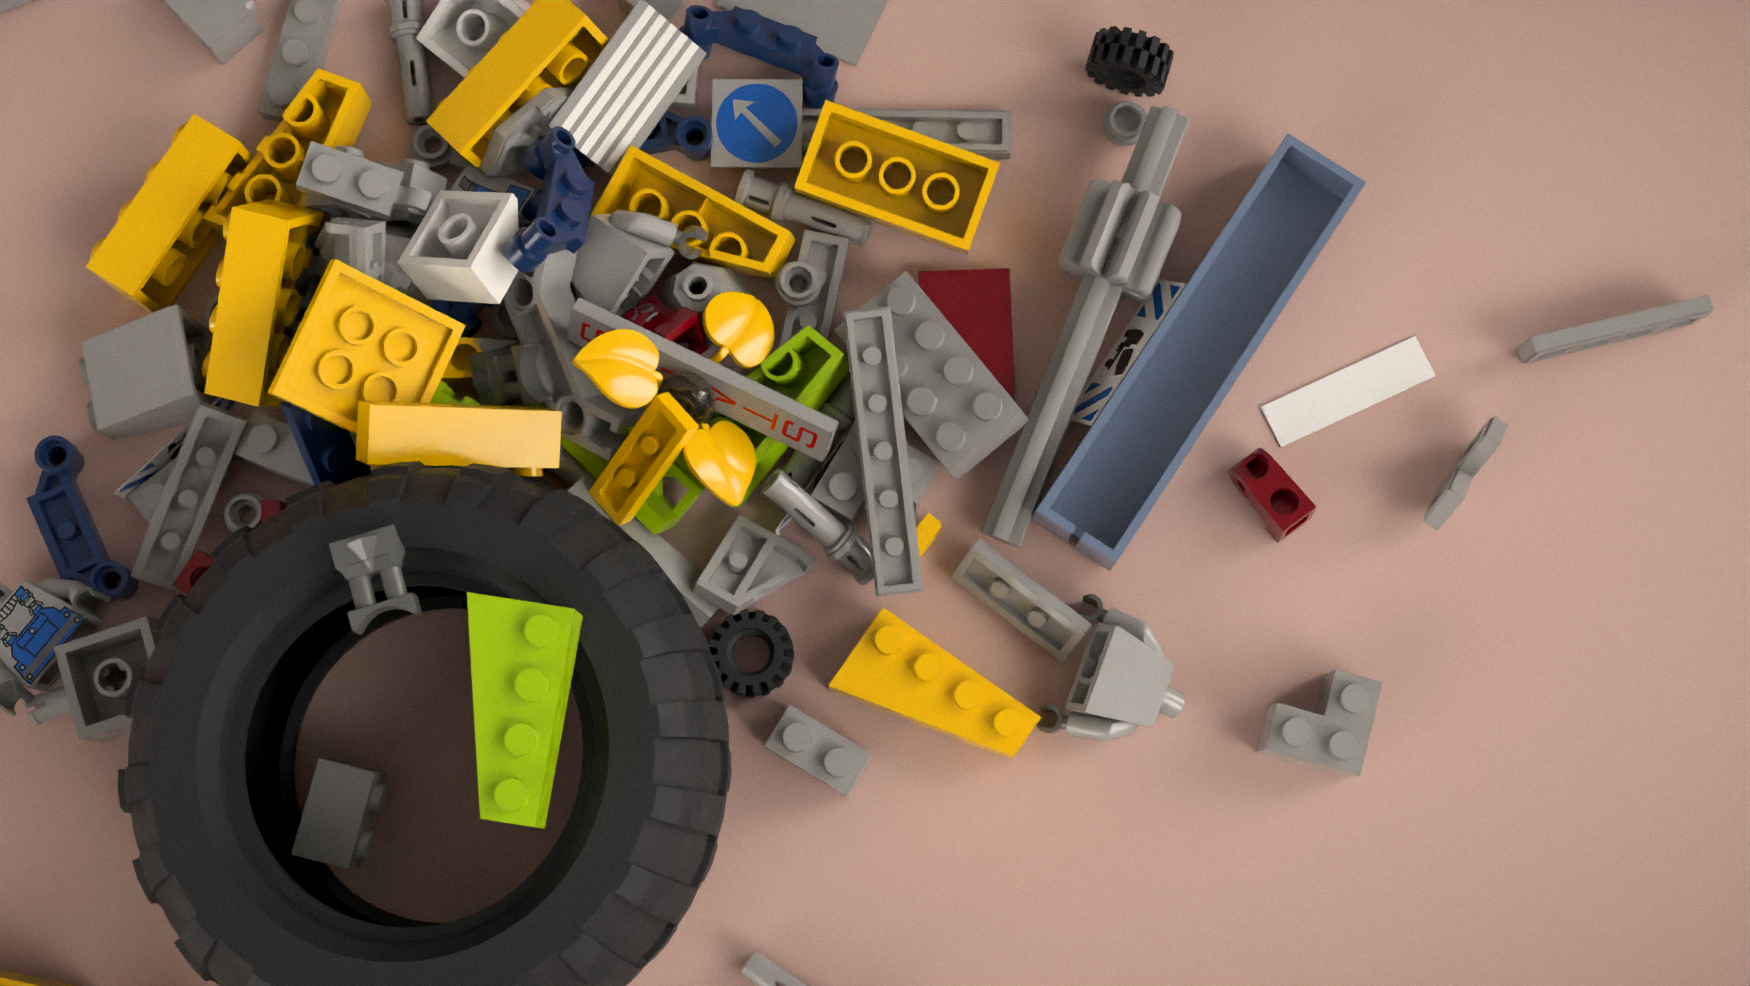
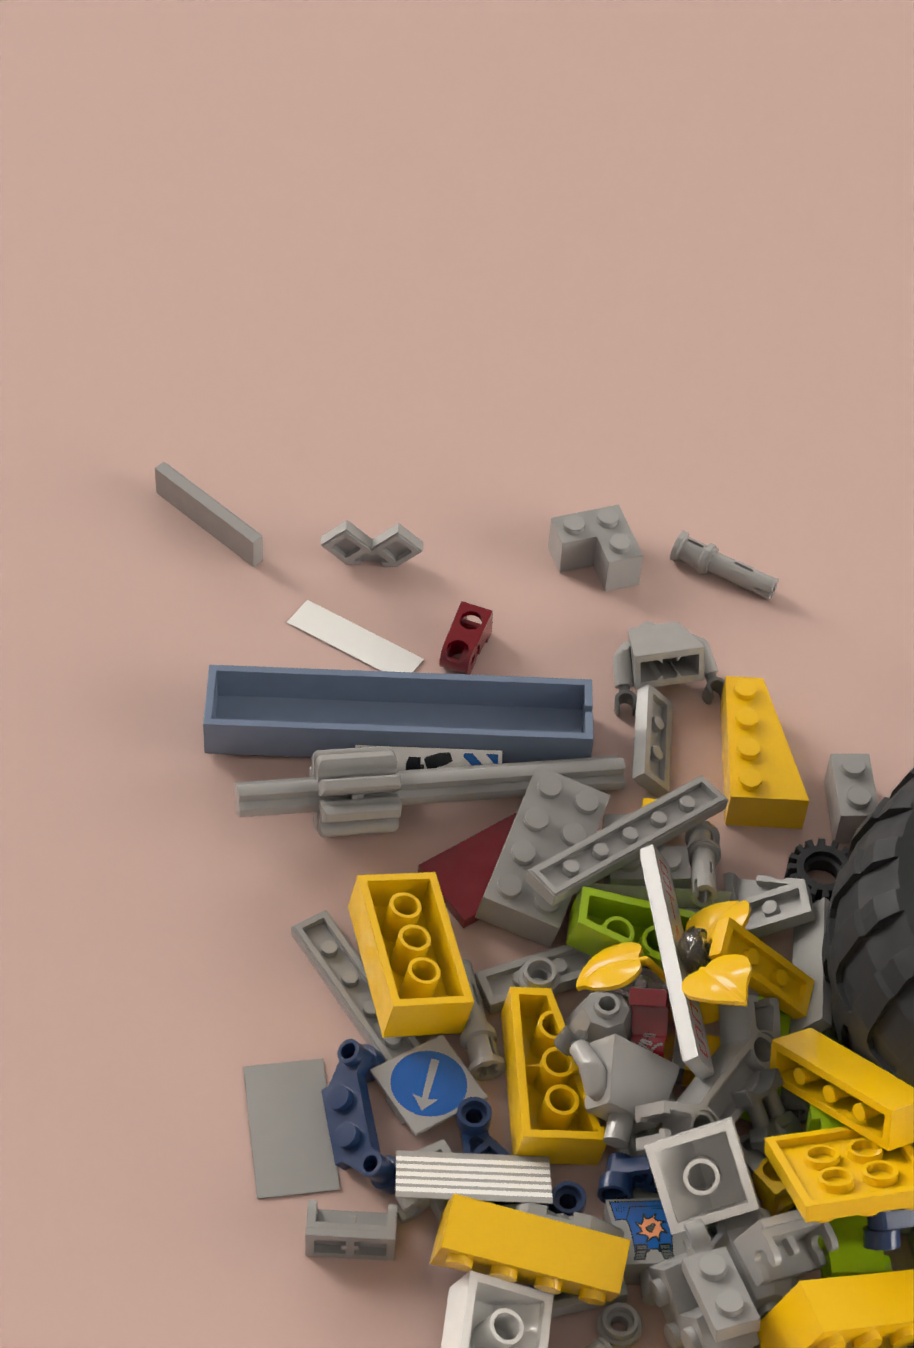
camera: 125 degrees left, 30 degrees down
(562, 204) = (615, 1129): dark blue plate -> none
(1124, 123) = (248, 850): light grey plate -> none
(1129, 61) = (205, 856): black tyre -> none
(1237, 846) = (708, 559): none -> light grey pin

